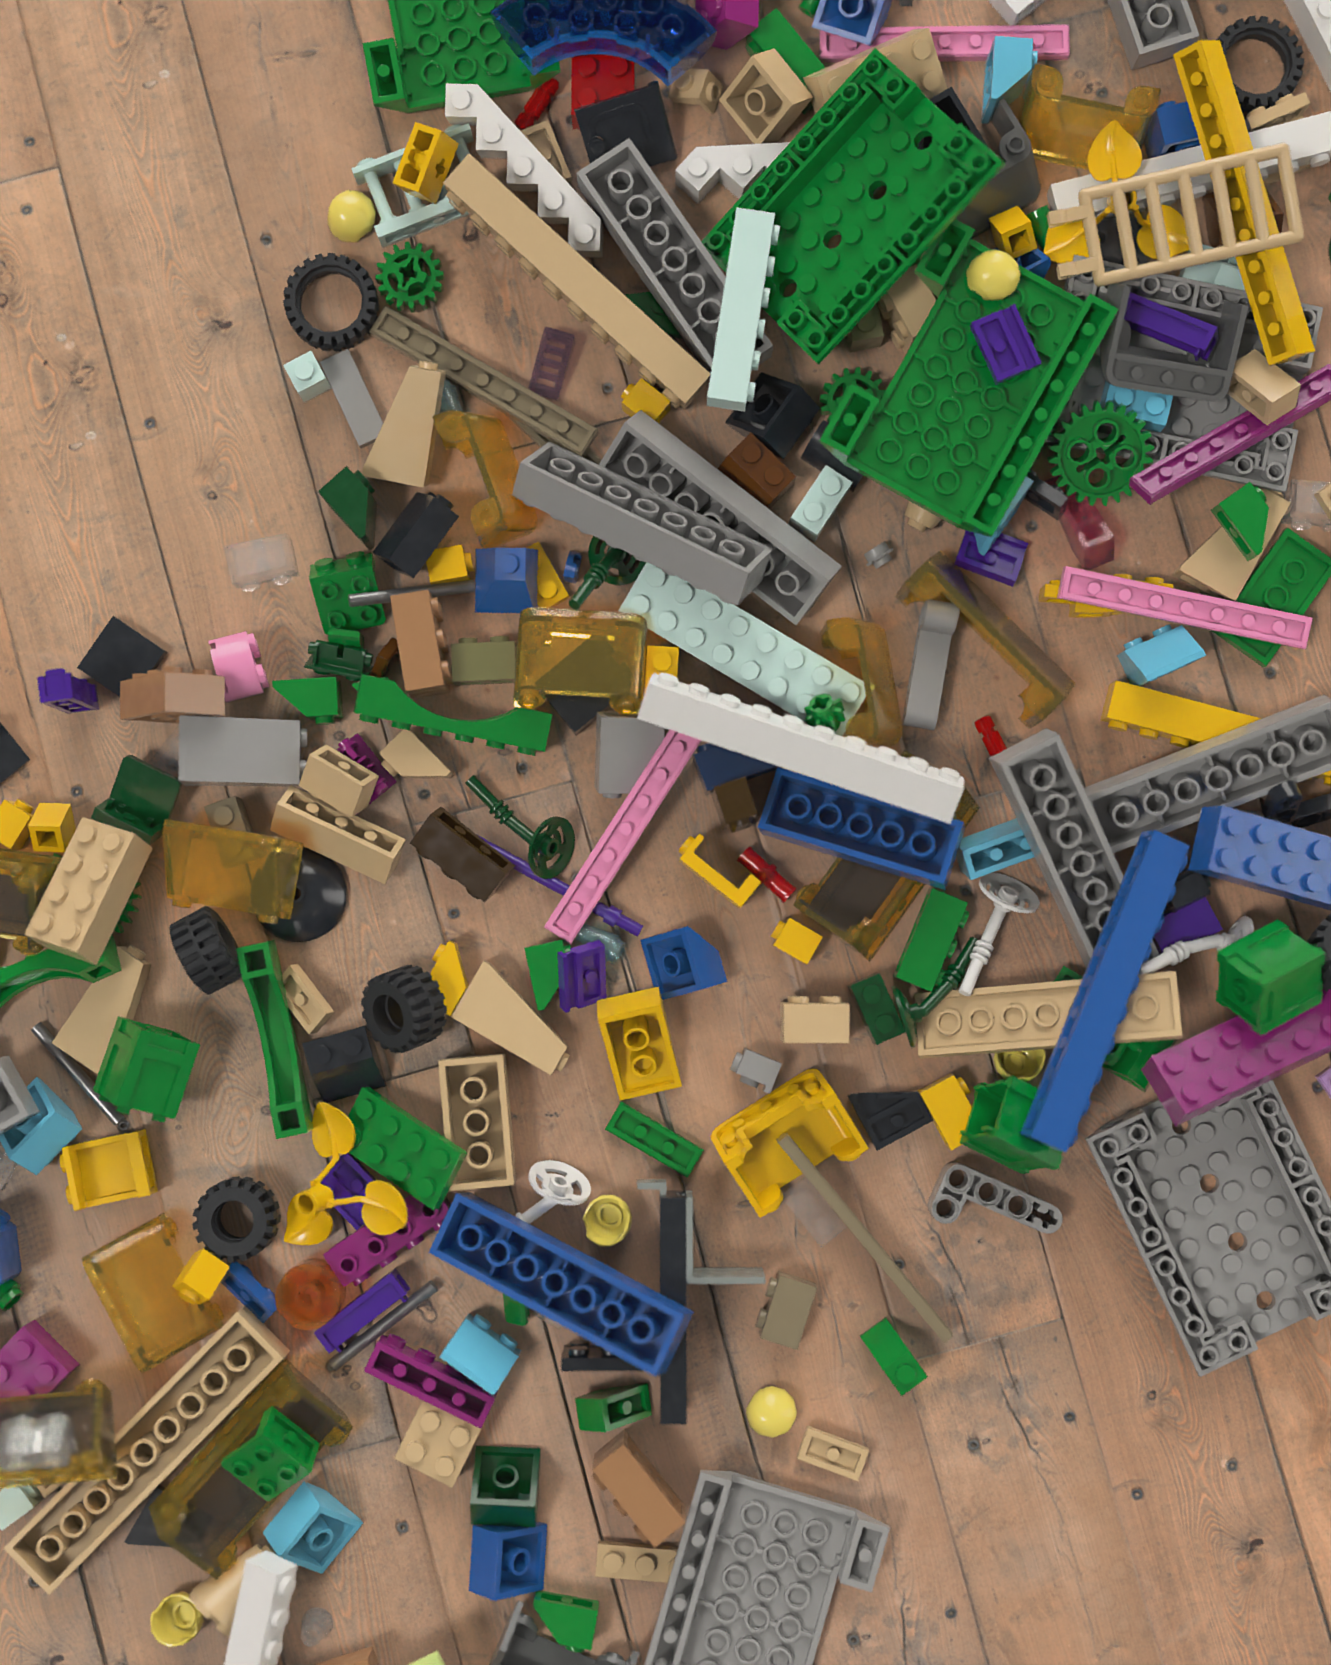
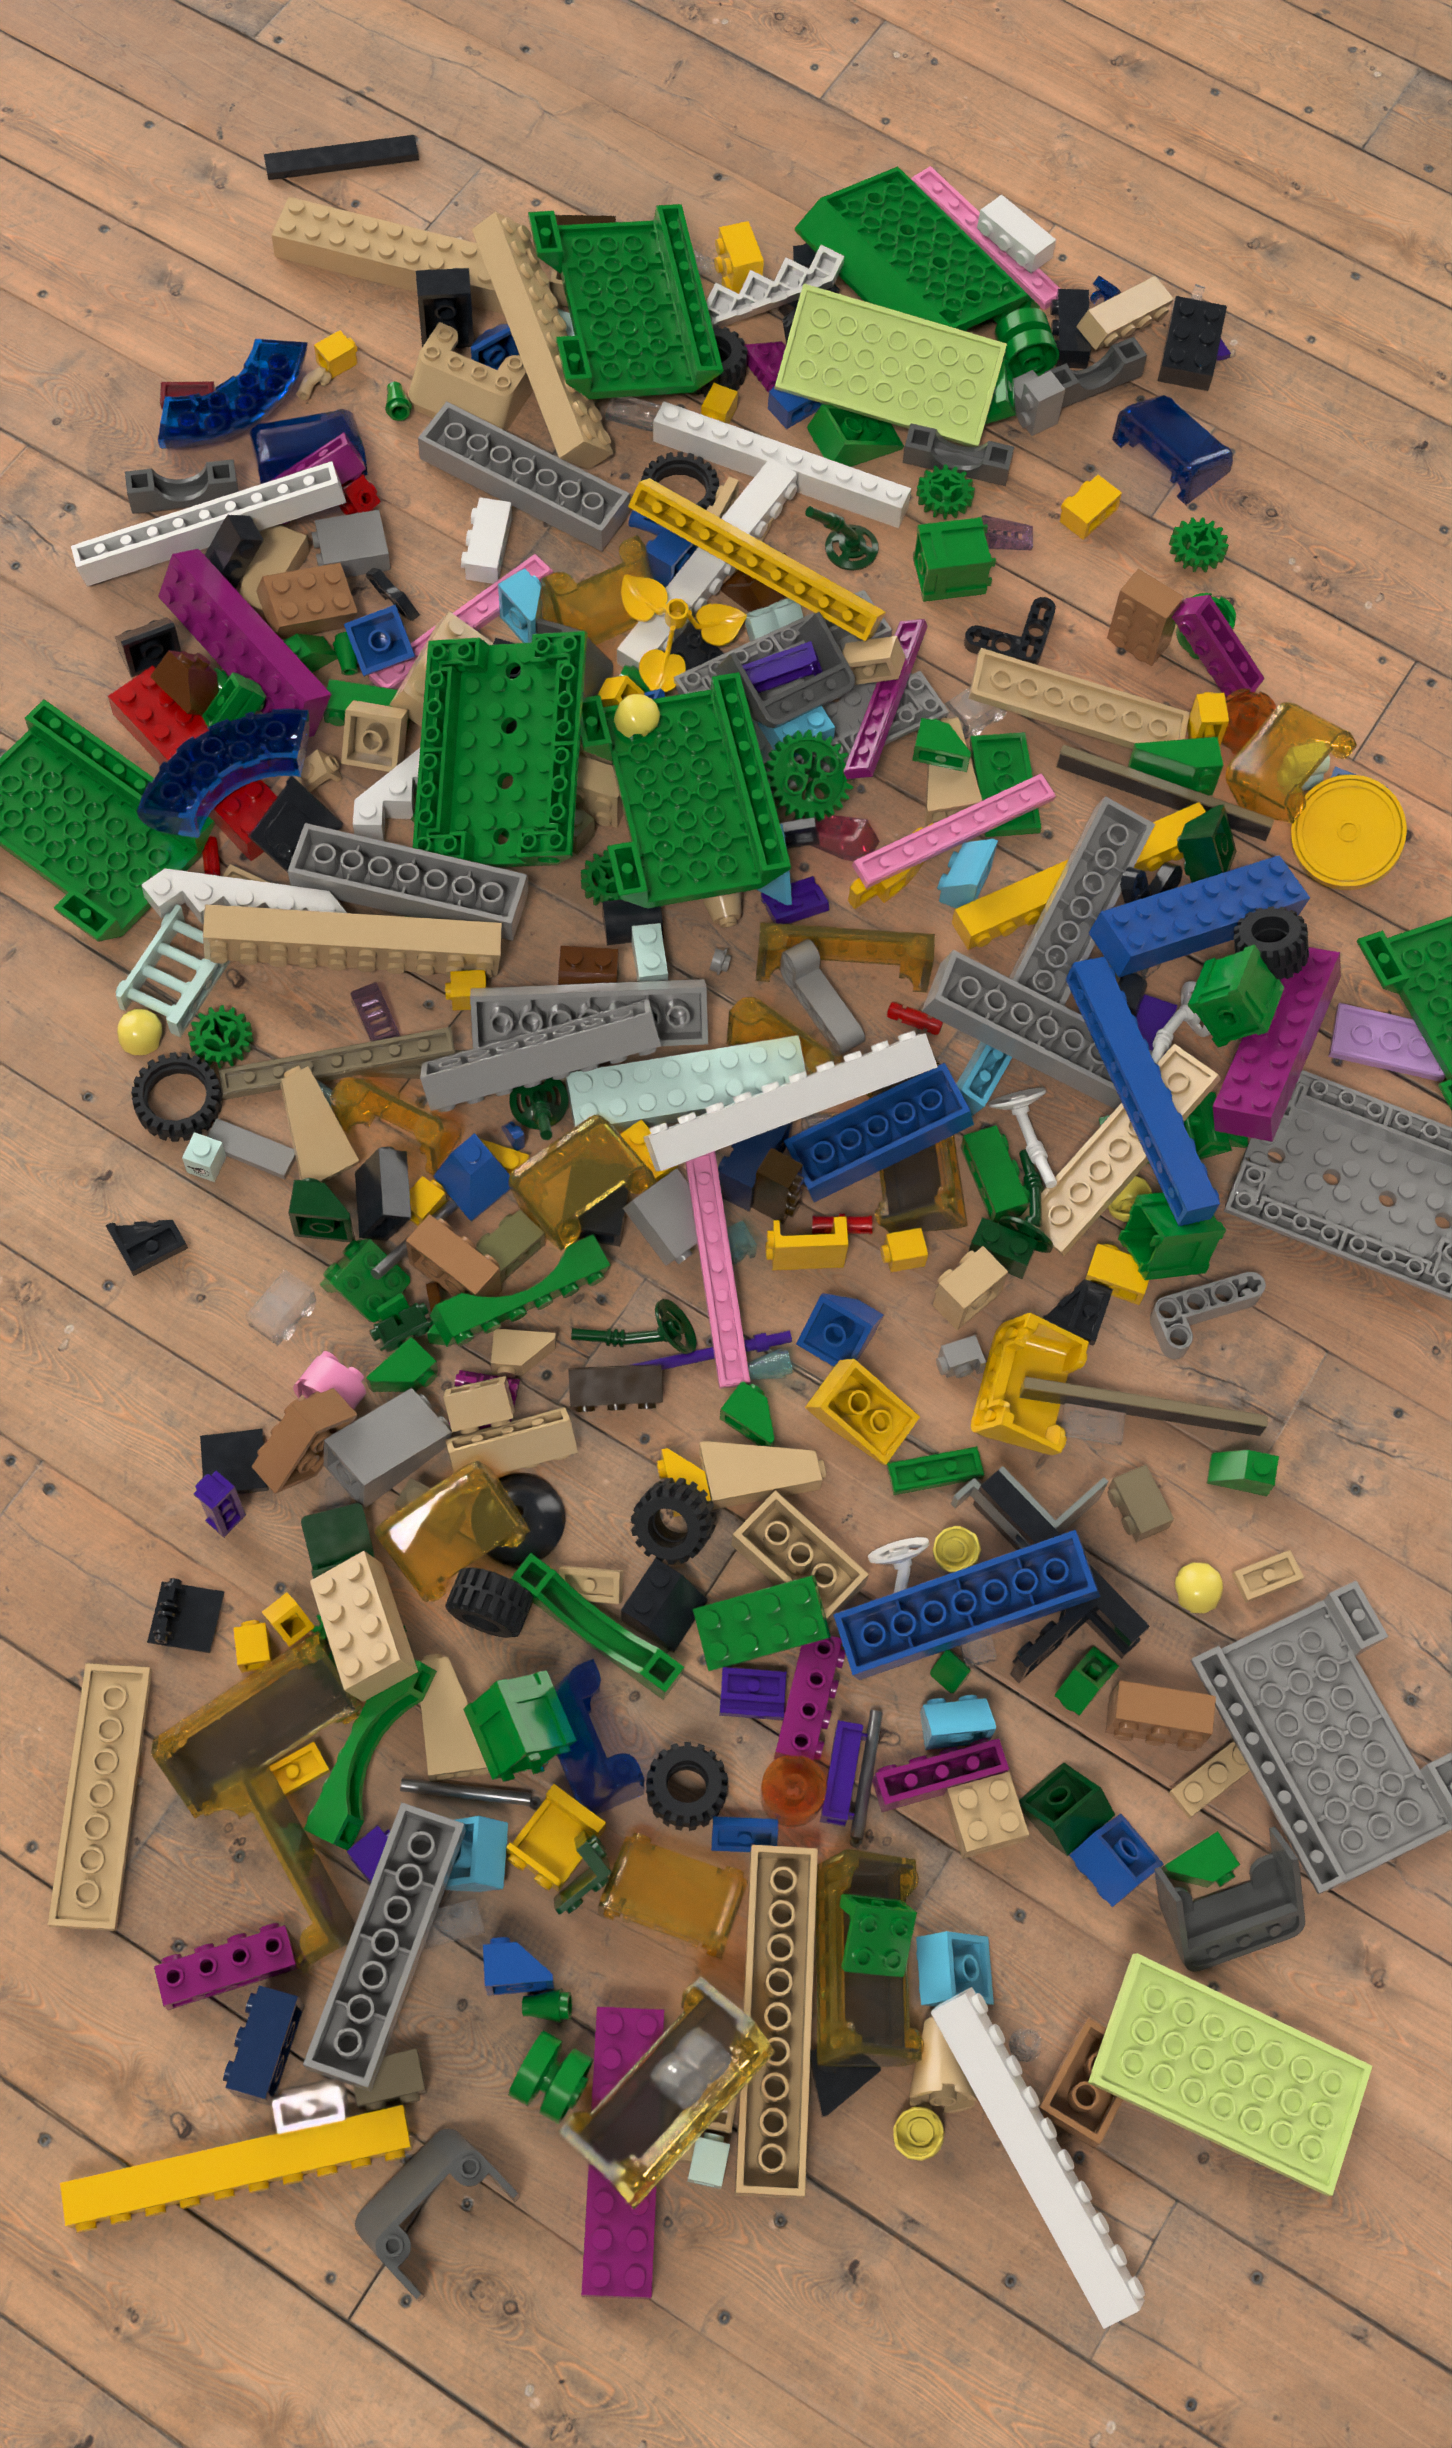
camera: 45 degrees left, 20 degrees down
(102, 1223) = (594, 1878): none -> dark green bracket
(170, 1158) = (593, 1778): none -> clear blue windscreen
(200, 1277) = (700, 1844): yellow brick -> none
(203, 413) = (147, 1243): none -> black wing
(306, 1214) = (741, 1743): yellow plant -> none
(425, 162) = (171, 946): yellow brick -> none
(582, 975) = (779, 1393): dark purple plate -> none
(666, 817) = (740, 1242): none -> clear light blue brick
(741, 308) = (486, 865): light aqua brick -> none
(776, 414) = (561, 922): black slope -> none
(825, 712) = (782, 1067): green gear -> none
(1005, 344) = (685, 749): dark purple plate -> none
(1197, 255) = (721, 544): tan bar -> none

